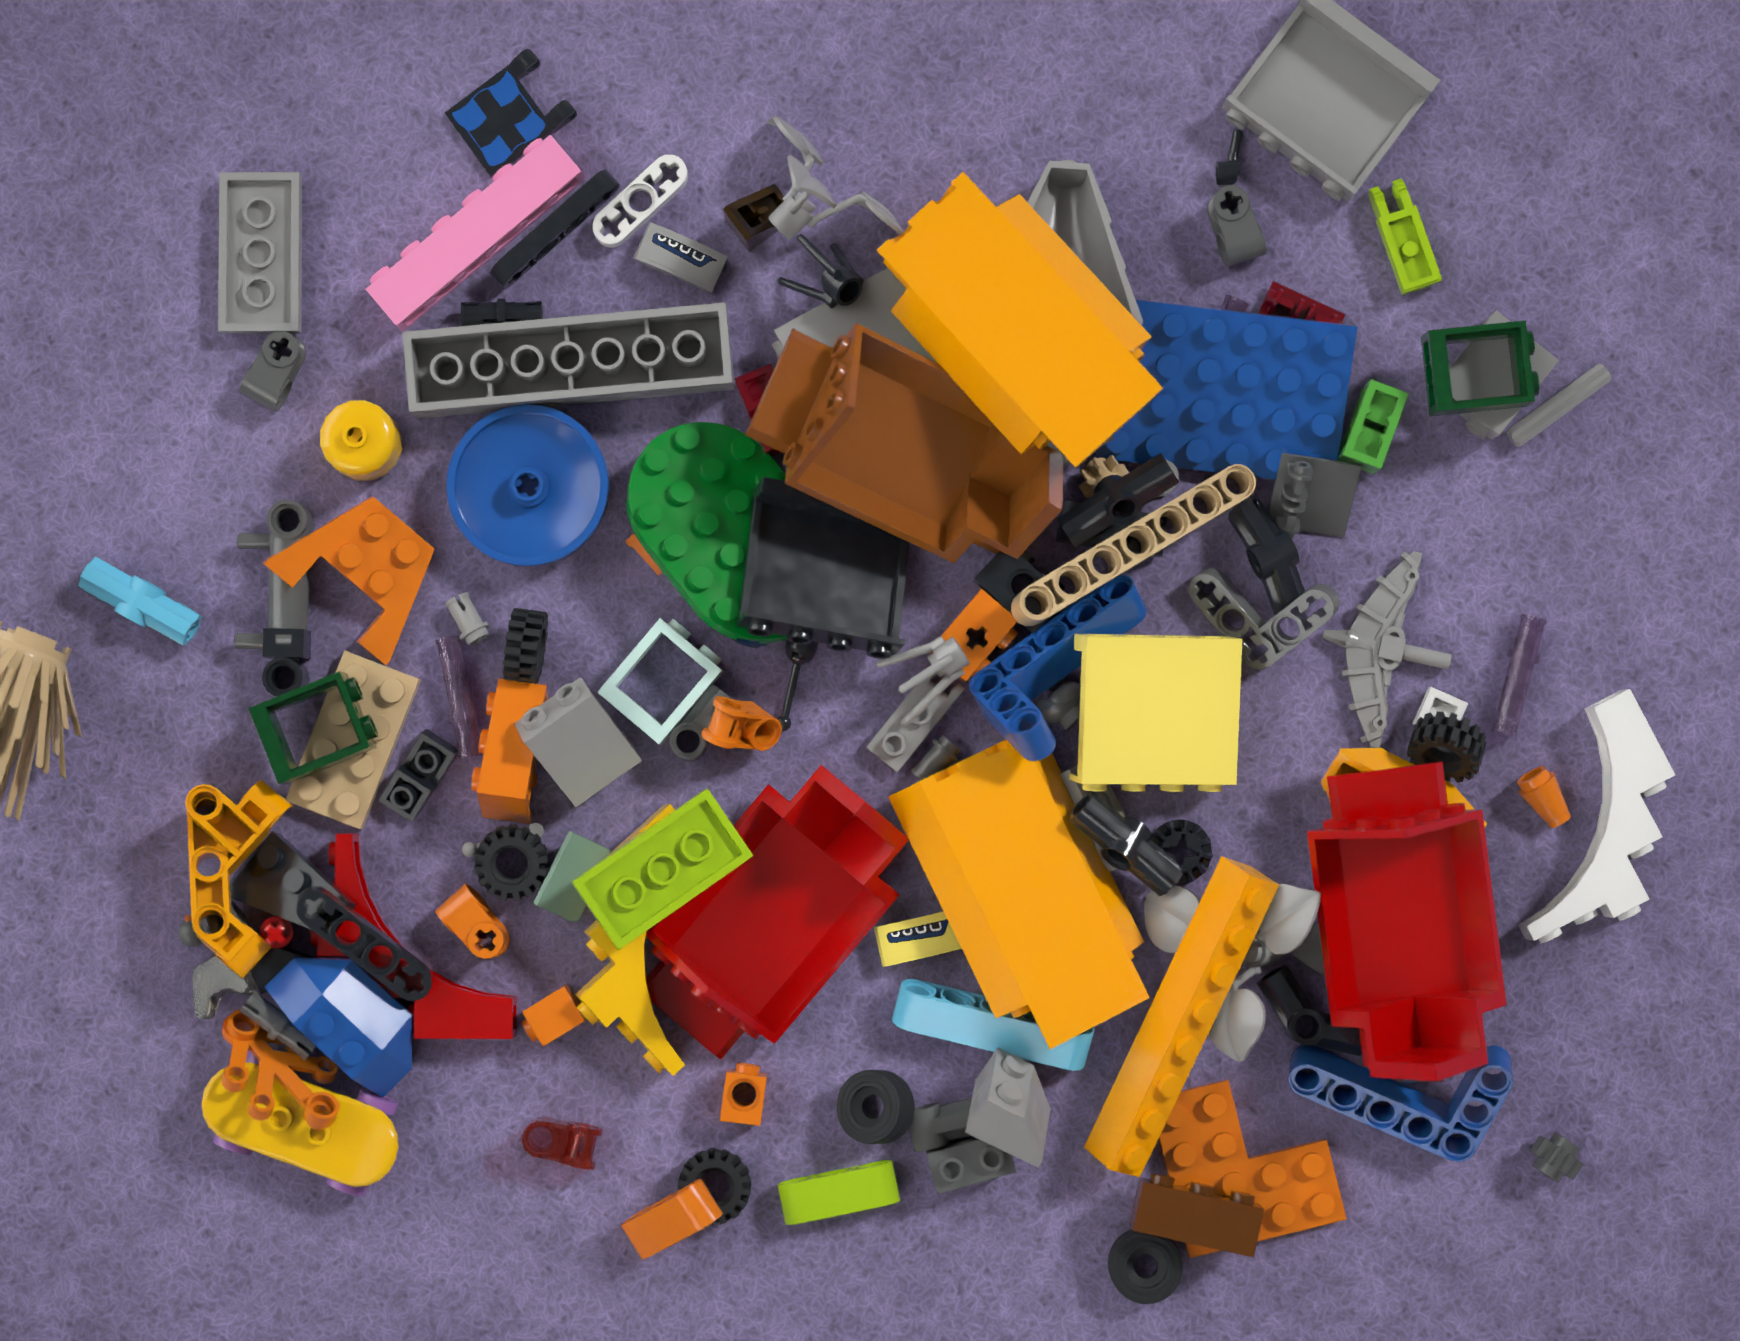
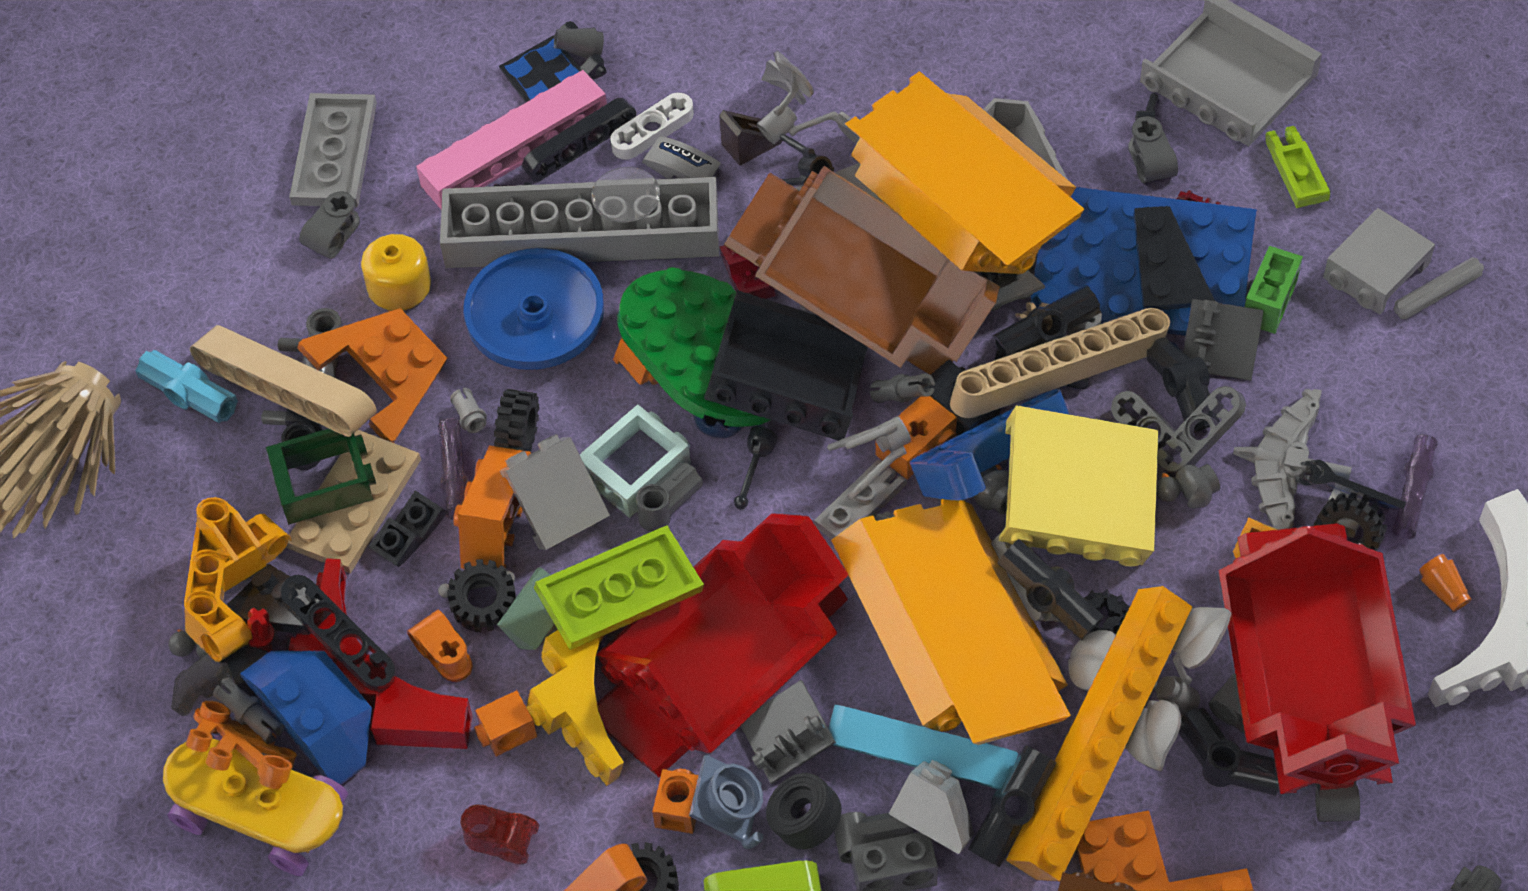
camera: 10 degrees right, 30 degrees down
(252, 610) = (283, 380): none -> tan beam
(542, 80) = (579, 41): none -> dark grey cone
(621, 336) = (625, 194): none -> clear piece
(741, 725) = (697, 485): orange piece -> none
(796, 1095) = (728, 800): none -> sand blue hat
(853, 1012) = (786, 732): none -> dark grey hinge
(915, 939) = (855, 673): light yellow slope -> none
(956, 582) = (902, 388): none -> dark grey pin
(1090, 1094) = (998, 828): none -> black piece
(1252, 405) = (1165, 262): none -> black wing
(1281, 686) = (1194, 483): none -> dark grey animal
(1407, 1102) = (1323, 833): blue beam -> none
(1438, 375) = (1363, 214): dark green window -> none
(1449, 699) = (1327, 477): none -> black flag

